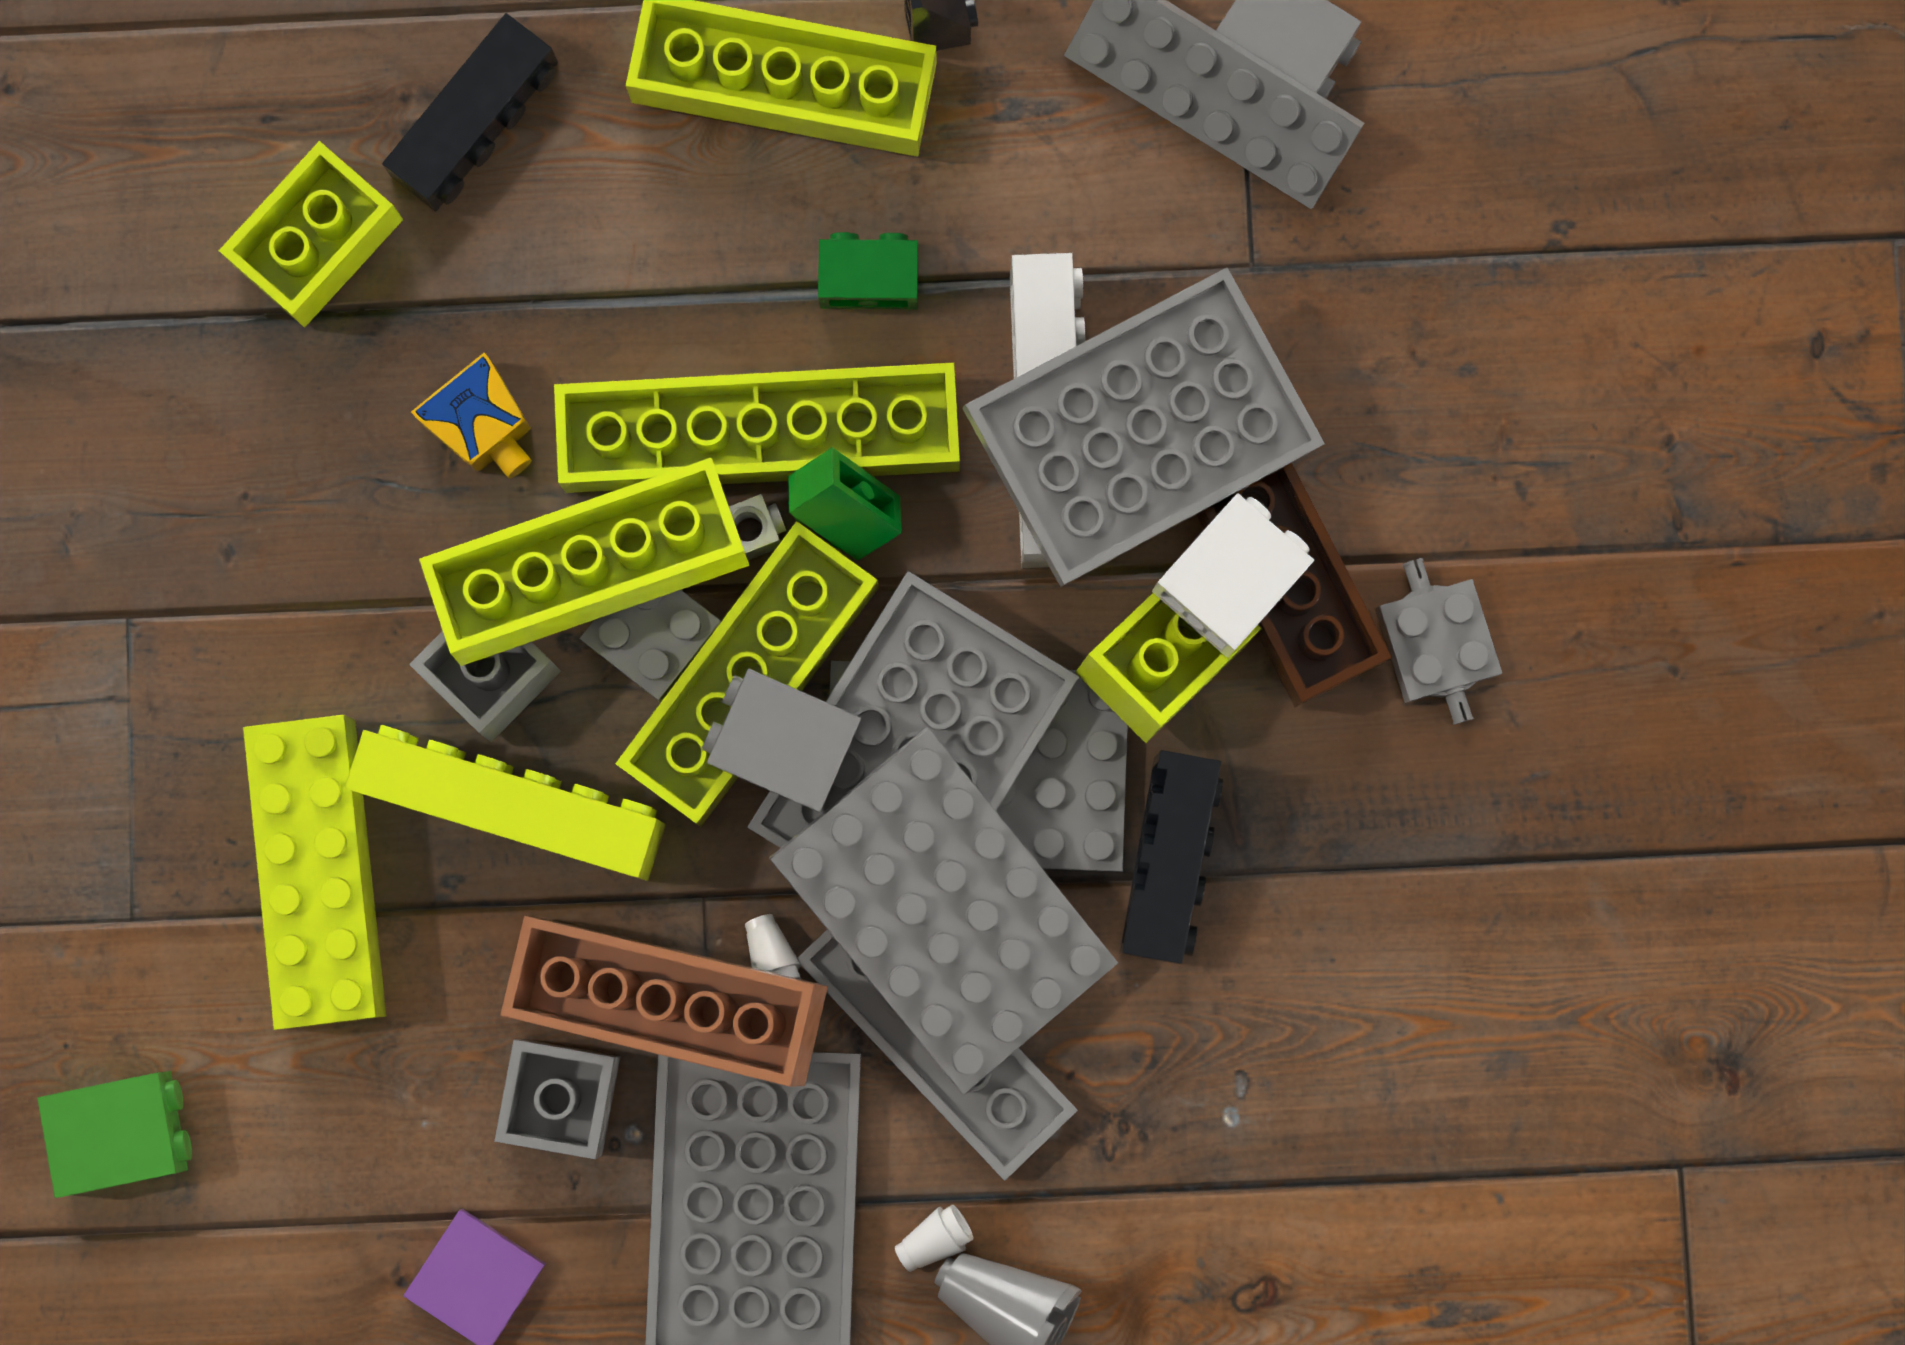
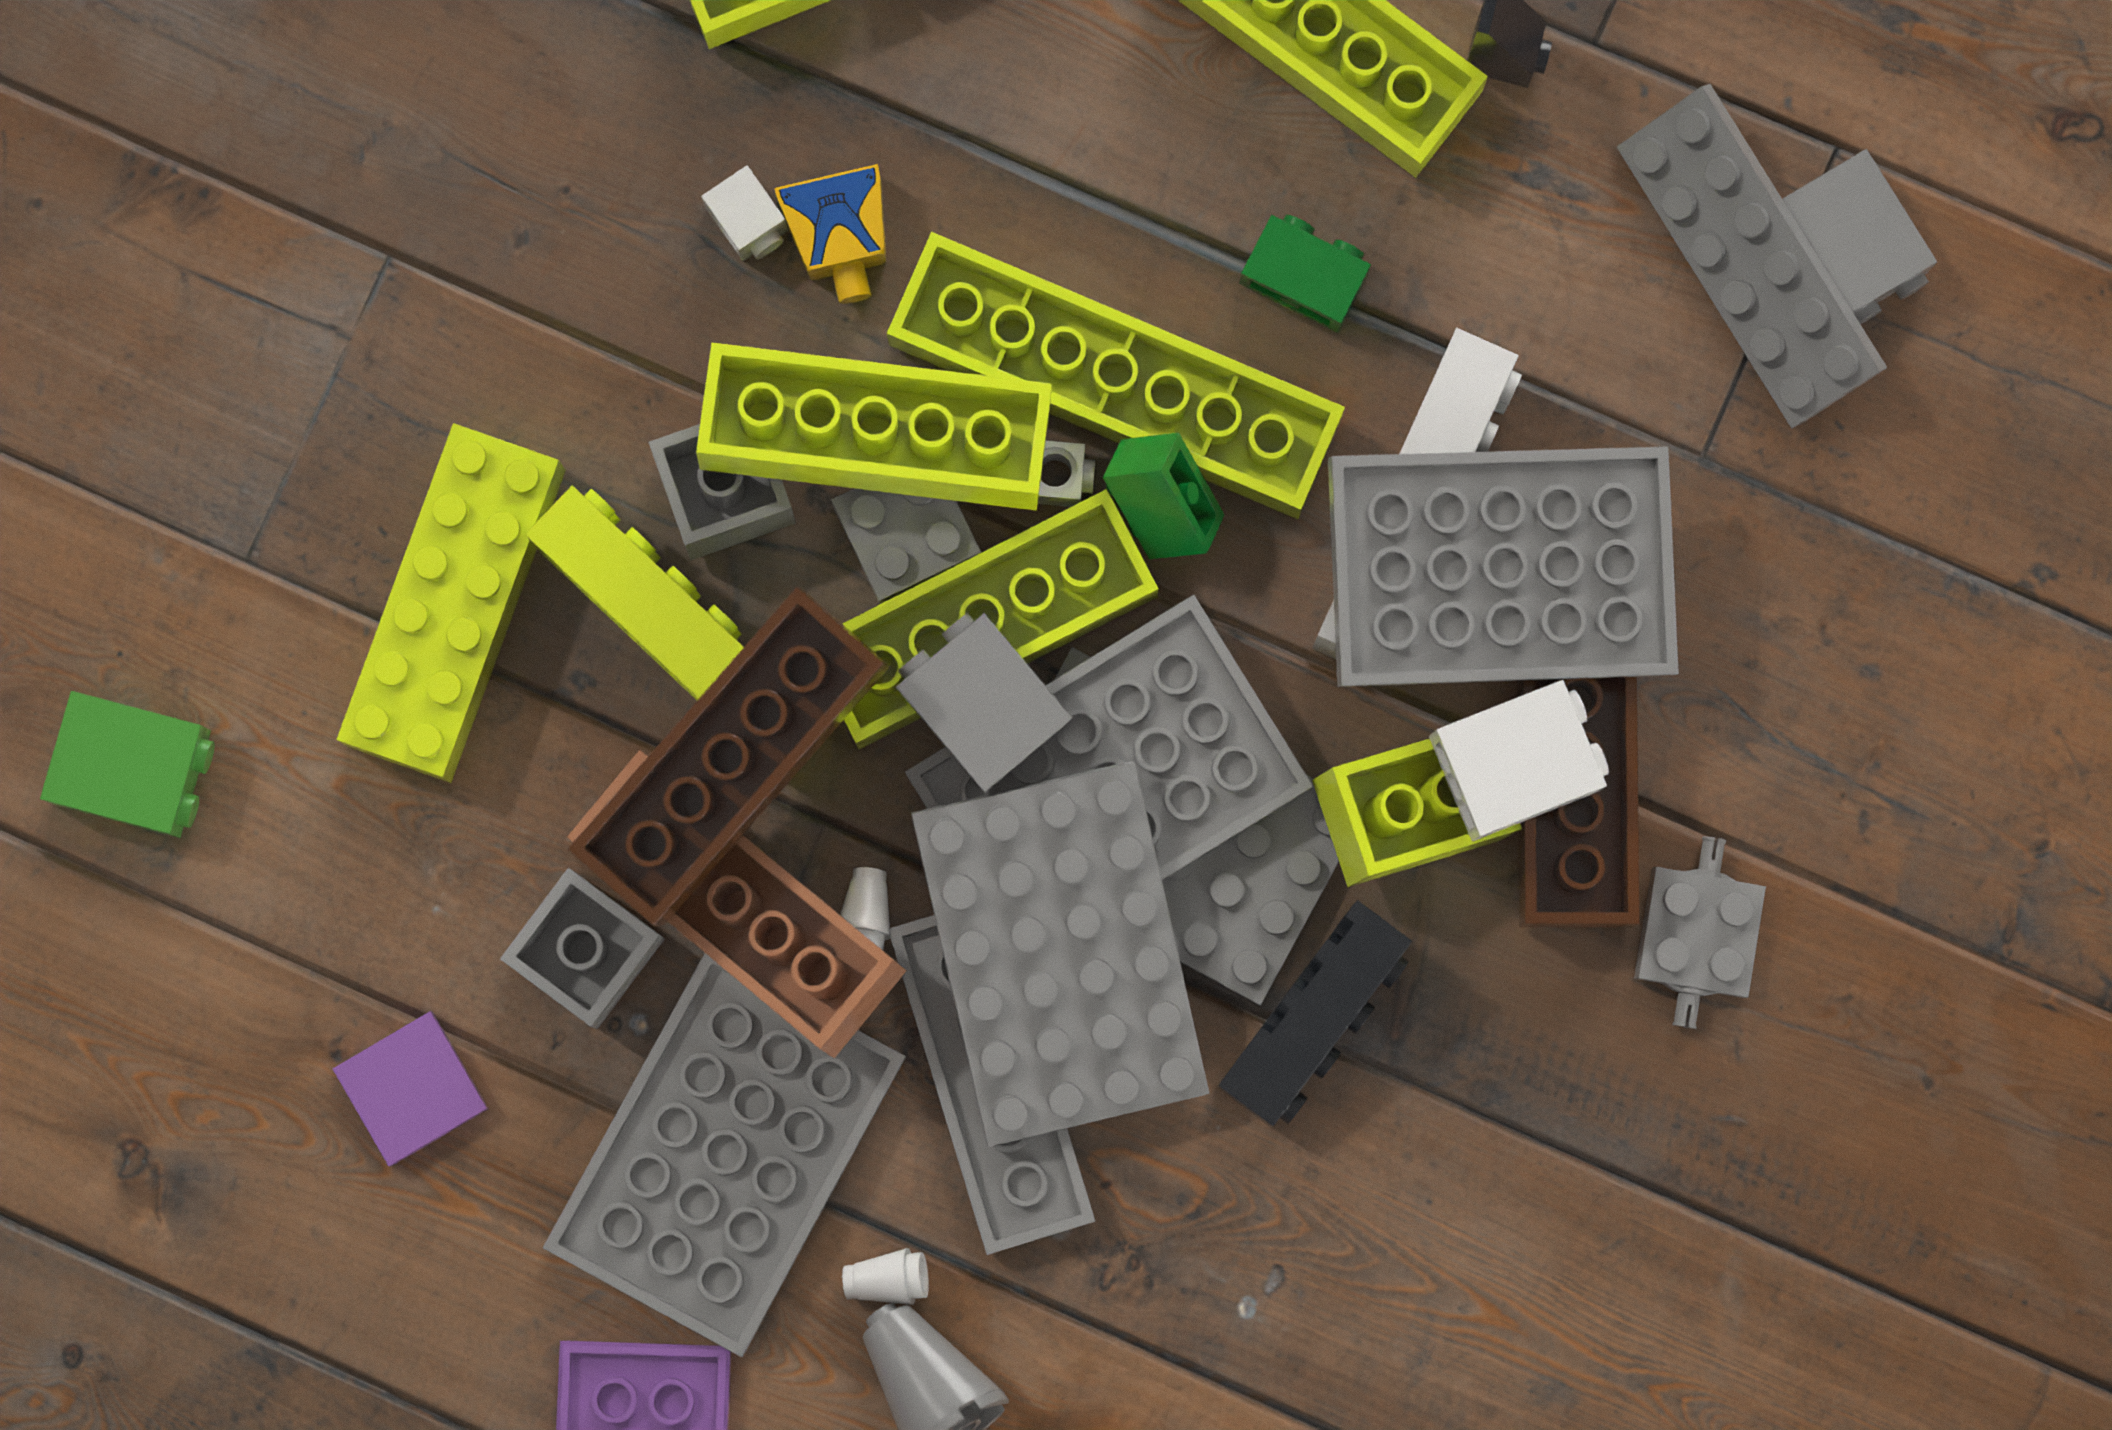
camera: 30 degrees right, 0 degrees up
(399, 444) = (746, 215): none -> white brick
(598, 888) = (728, 757): none -> reddish brown brick

